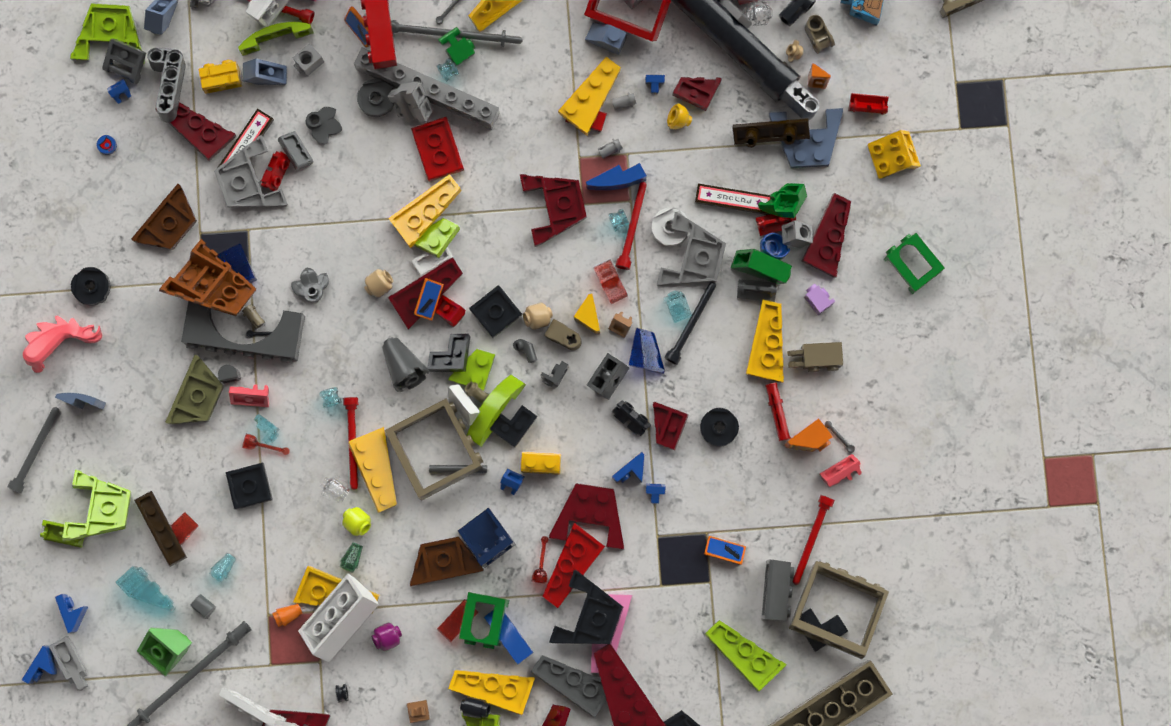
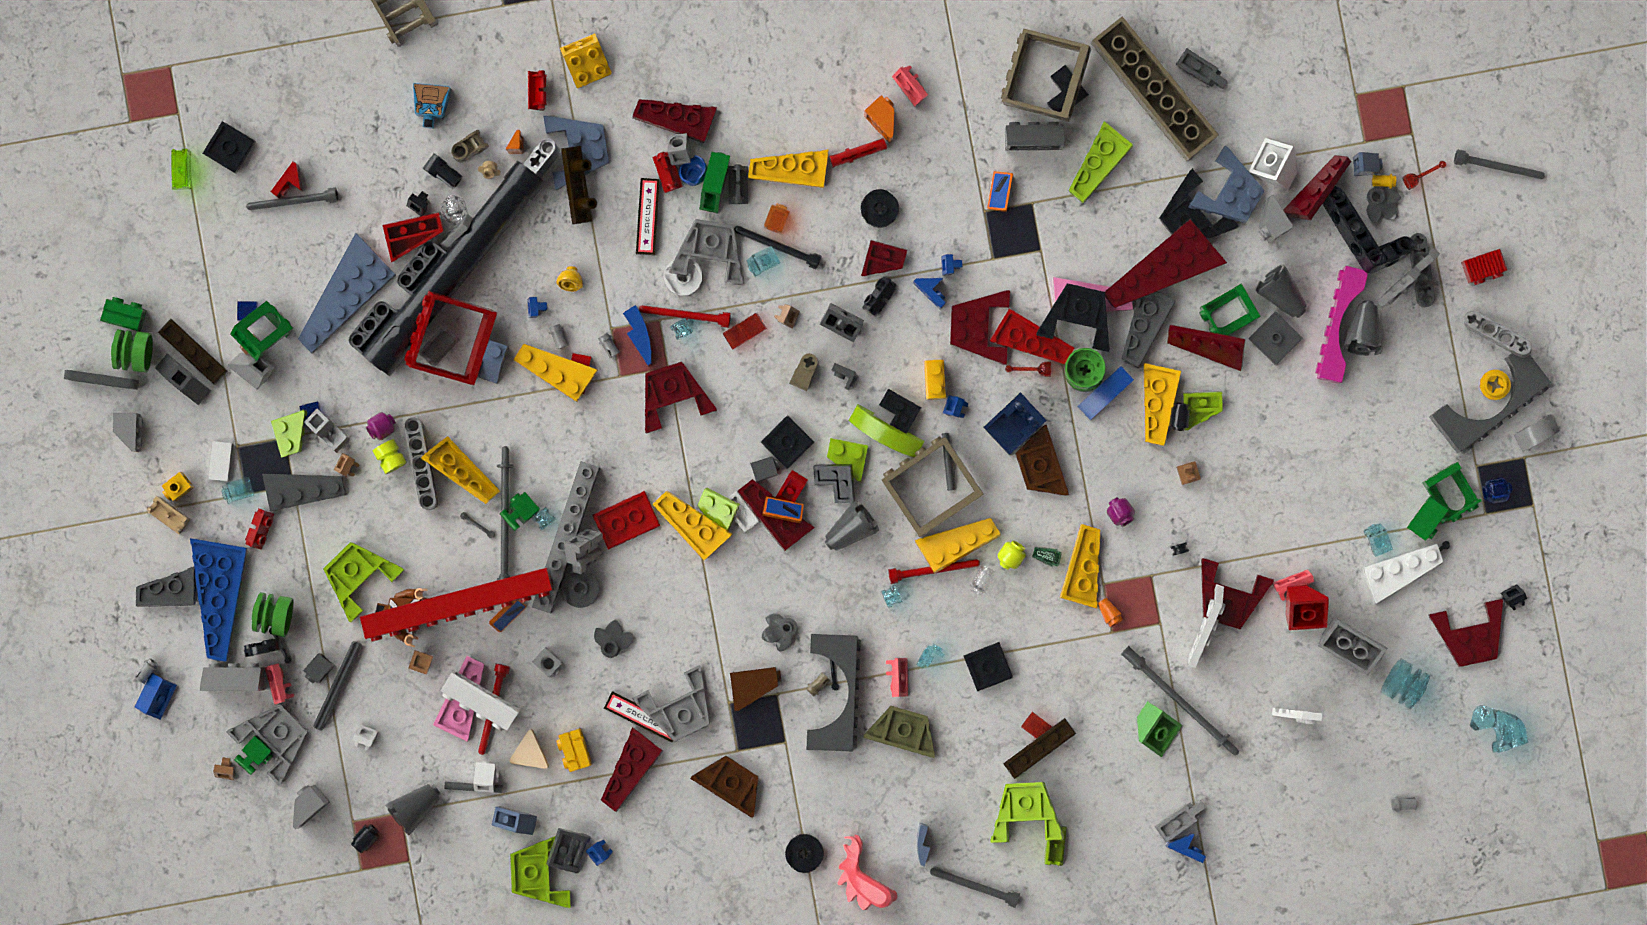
camera: 105 degrees left, 5 degrees up
(71, 618) = (1136, 824): blue slope -> none
(106, 144) = (656, 858): blue tile -> none
(139, 587) = (1101, 758): clear light blue slope -> none
(169, 69) = (590, 800): dark grey beam -> none
(203, 606) = (1111, 696): dark grey brick -> none
(210, 282) = (790, 729): dark orange wedge -> none
(222, 568) = (1071, 682): clear light blue cone -> none
(223, 34) = (529, 752): none -> tan piece
(228, 374) = (878, 700): dark grey brick -> none
(239, 263) = (768, 710): clear blue slope -> none
(251, 44) = (517, 676): lime slope -> none
(251, 442) = (944, 669): clear red hinge -> none
(260, 252) = (752, 684): none -> reddish brown slope
(264, 72) = (566, 705): sand blue slope -> none
(273, 178) = (658, 678): red hinge -> none
(295, 150) = (643, 663): dark grey plate -> none
(338, 618) = (1108, 560): white slope -> none
(378, 283) = (771, 562): tan head -> none
(452, 625) = (1097, 444): clear red slope -> none
(463, 403) = (884, 462): white slope -> none
(471, 286) = (765, 468): none -> dark grey brick
(473, 390) = (869, 454): dark tan pin -> none
(493, 637) = (1111, 406): green panel -> none
(527, 348) = (820, 407): dark grey arm -> none
(537, 316) = (788, 399): tan head -> none
(544, 611) = (1085, 358): none -> bright green wheel
(587, 315) = (781, 349): yellow slope -> none
(645, 352) = (812, 288): clear blue slope -> none
(697, 90) = (540, 263): dark red wing -> none
(719, 324) = (777, 218): none -> clear orange brick
(785, 201) = (645, 163): green slope -> none
(818, 299) = (741, 122): lavender brick -> none
(818, 356) = (799, 117): dark tan hinge -> none
(824, 504) = (945, 98): red piece -> none
(850, 448) = (886, 78): dark grey hinge -> none
(894, 258) = (692, 51): green panel -> none

